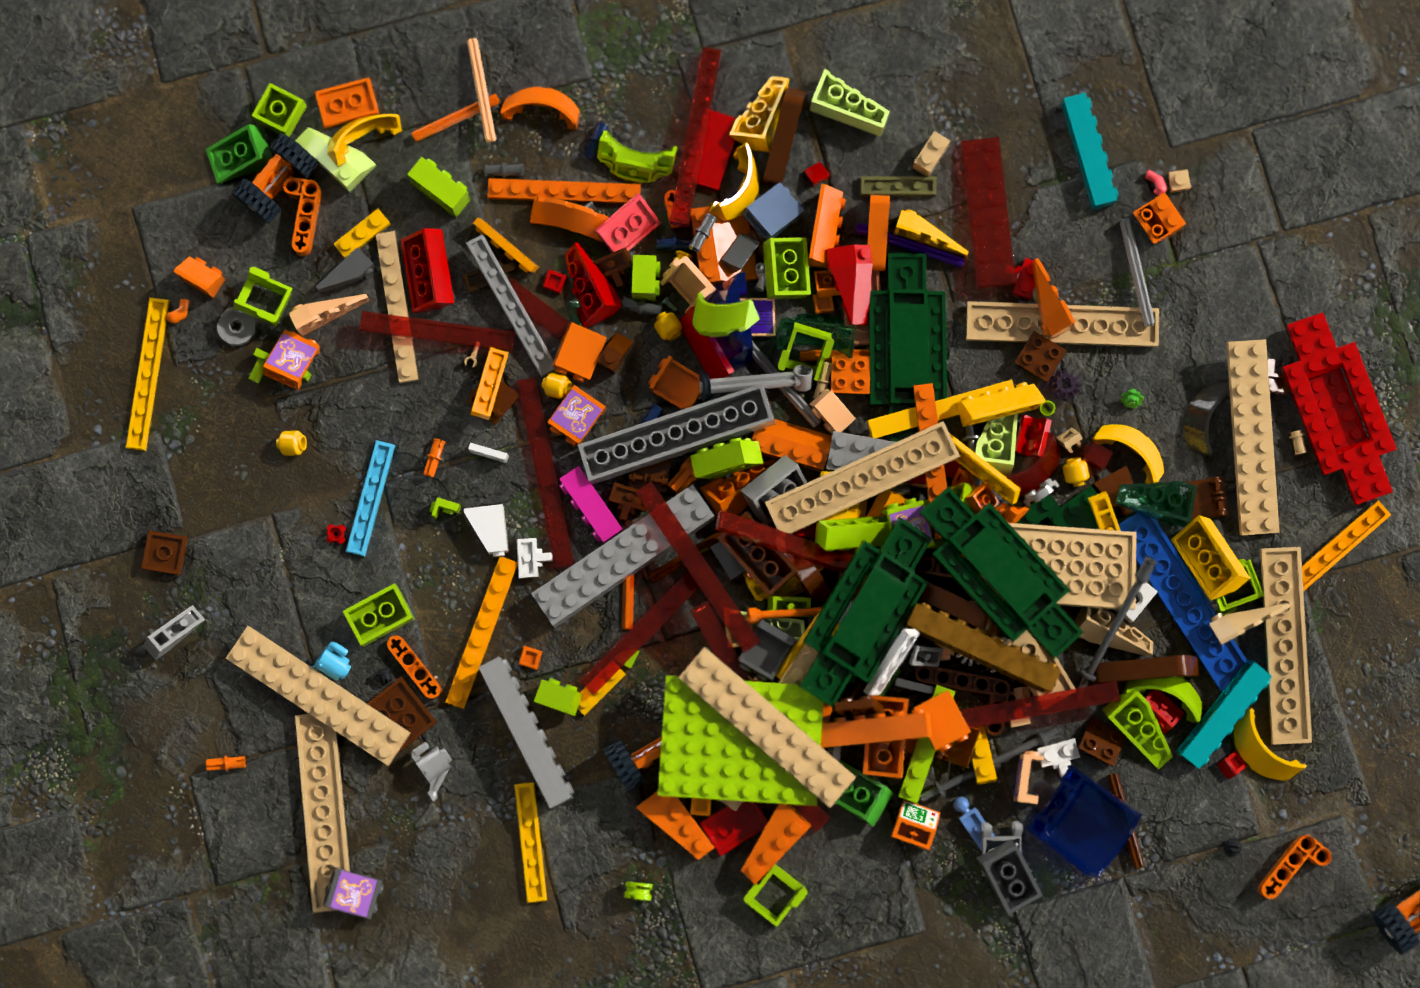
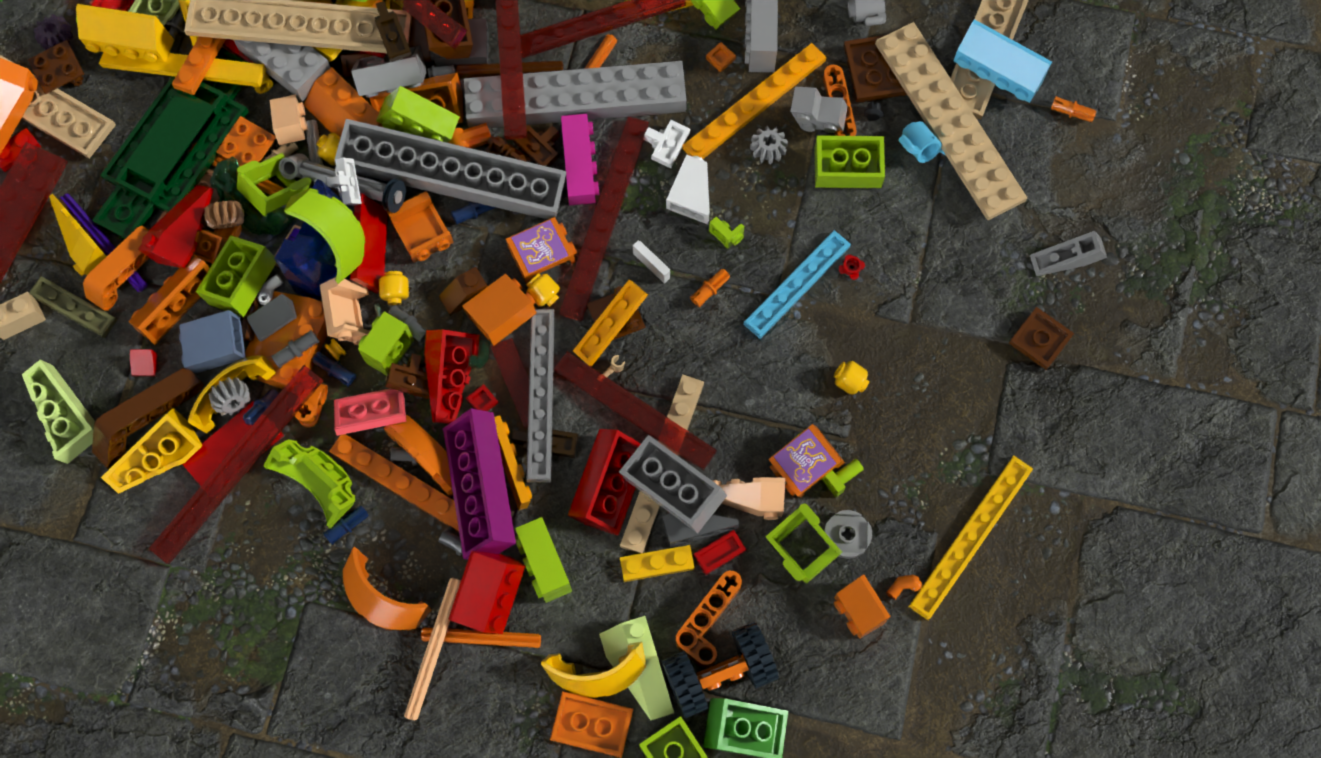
camera: 150 degrees left, 10 degrees down
(298, 760) = (1002, 61): none -> medium azure slope
(321, 265) = (719, 552): none -> red tile
(374, 283) = (673, 483): none -> light grey brick
(423, 644) = (818, 112): none -> light grey brick
(455, 602) = (774, 150): none -> light grey gear
(462, 141) = (487, 592): none -> red slope
(512, 210) = (478, 483): none -> magenta brick
(706, 185) = (259, 407): none -> dark blue axle
(733, 179) = (229, 396): none -> light grey gear
(739, 369) = (346, 181): none -> white hinge
(781, 505) = (391, 33): none -> dark brown hinge
(783, 407) = (328, 147): none -> yellow head
(825, 307) = (224, 214): none -> medium nougat gear

